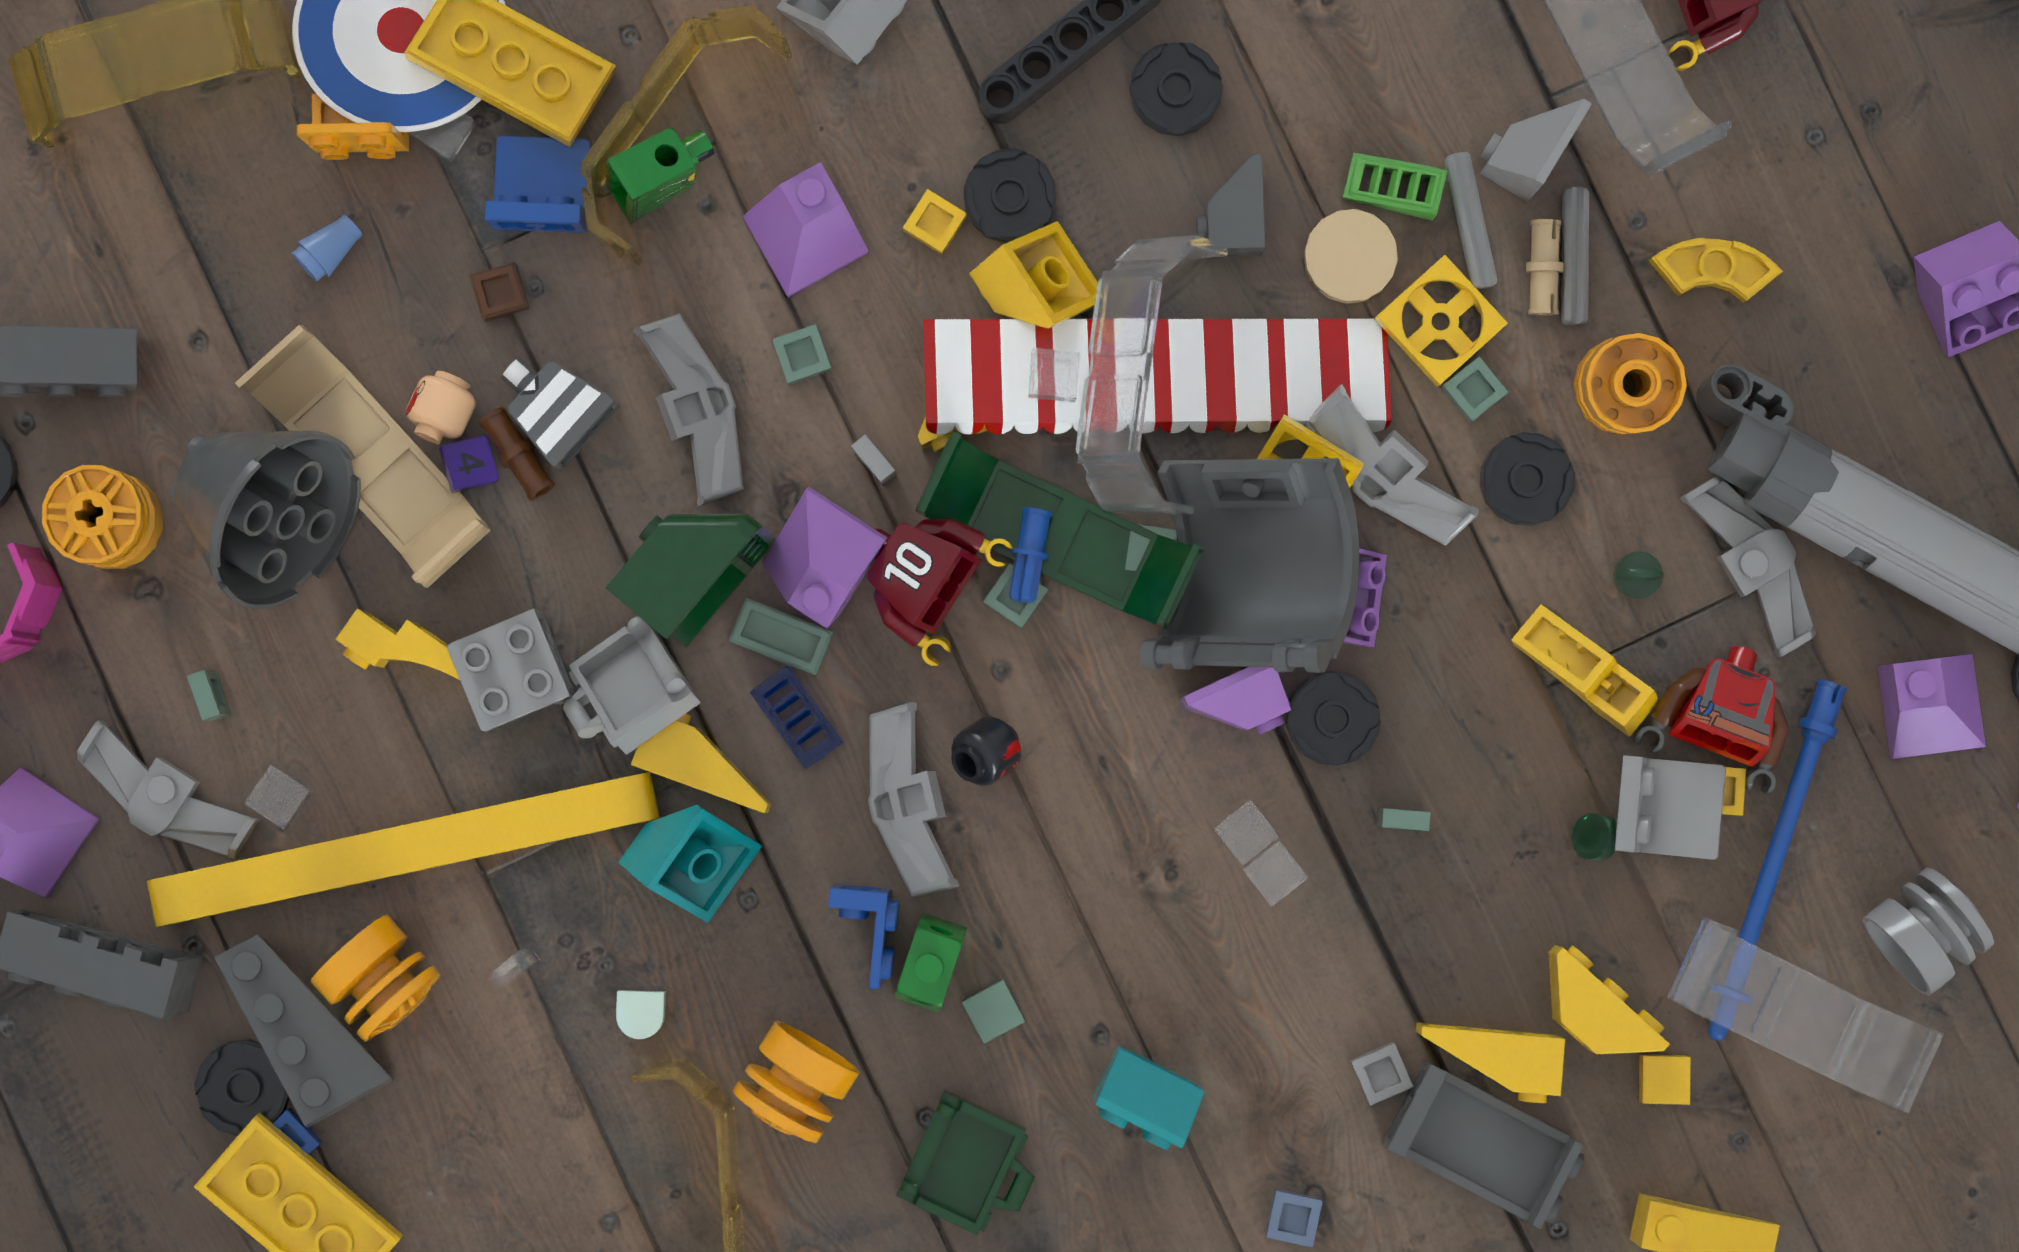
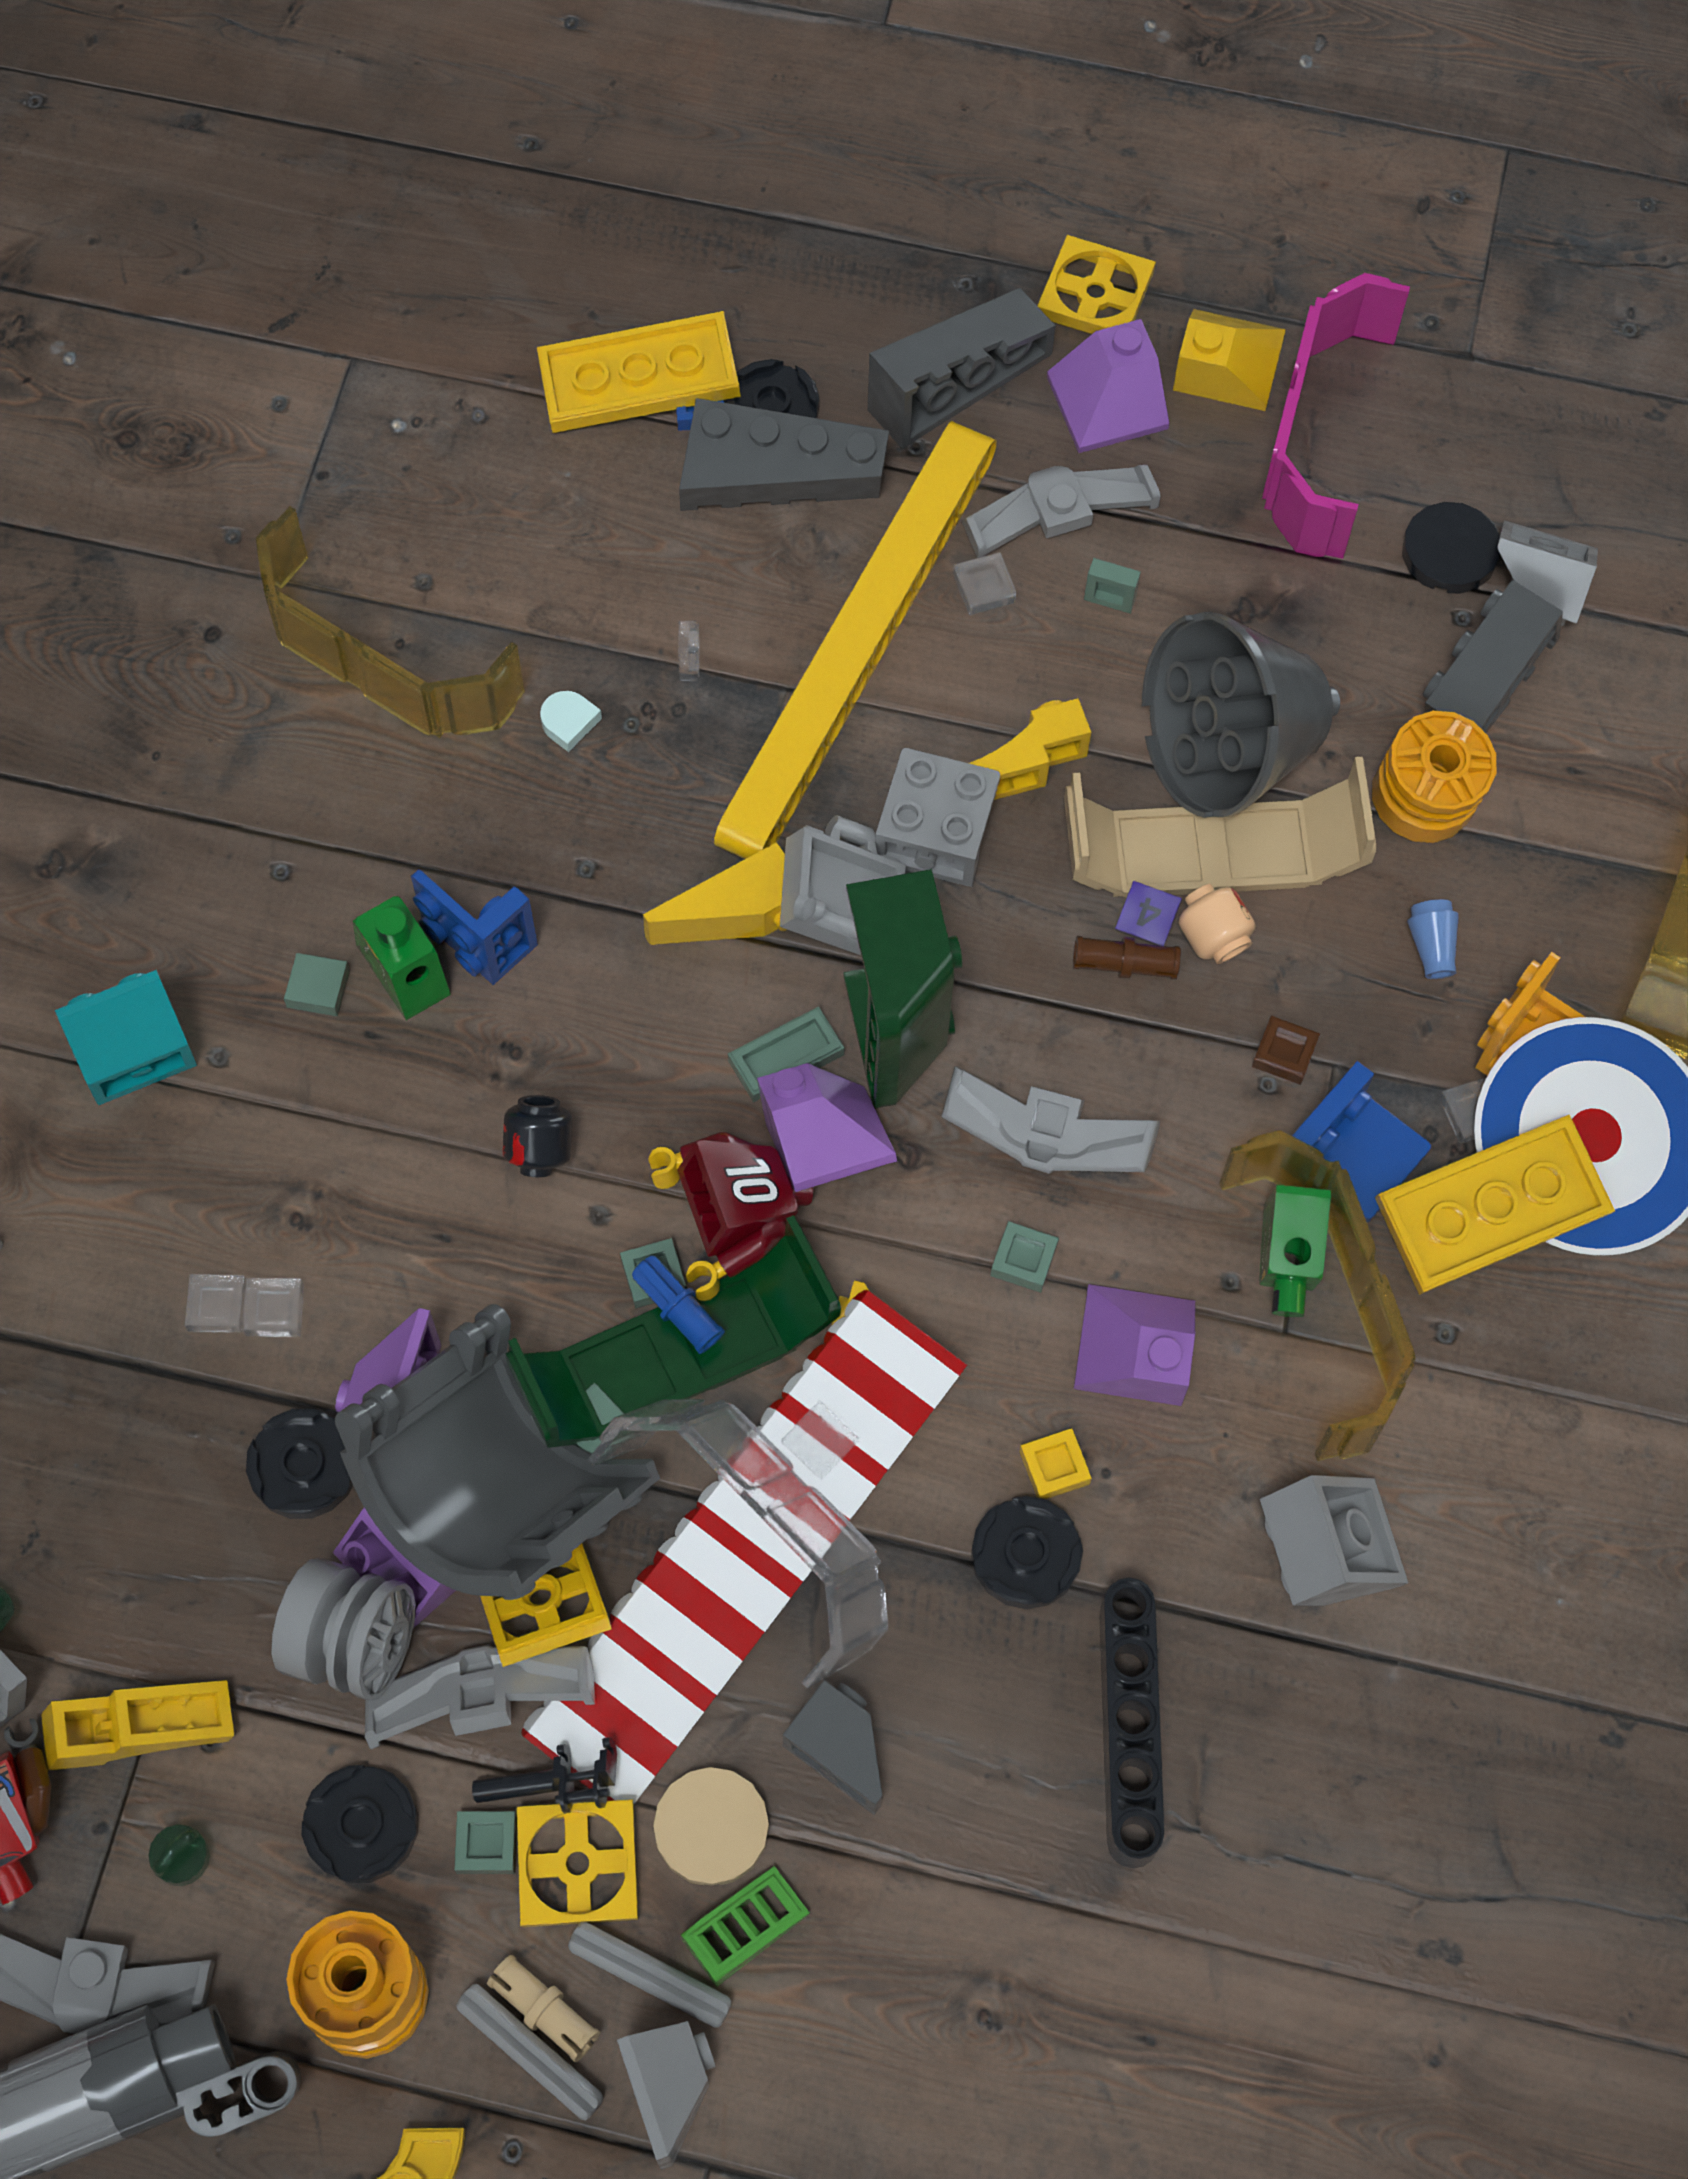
camera: 125 degrees right, 20 degrees down
(121, 536) = (1330, 601): light orange wheel -> none
(197, 333) = (1434, 776): none -> light orange wheel
(376, 978) = (769, 535): light orange wheel -> none
(556, 409) = (1139, 1014): torso -> none
(690, 859) = (655, 834): teal slope -> none
(774, 684) = (721, 1031): clear blue slope -> none
(796, 1081) = (399, 776): light orange wheel -> none
(873, 460) = (876, 1239): light grey tile -> none
(906, 801) = (553, 1041): light grey plate -> none
(965, 1163) = (215, 867): dark green piece -> none
(1037, 278) = (922, 1509): yellow slope -> none
(1176, 88) = (1008, 1790): black tile -> none
(1403, 819) = (158, 1446): sand green tile -> none
(1405, 374) = (554, 1780): none -> black piece
(1428, 586) = (343, 1628): none -> light grey wheel

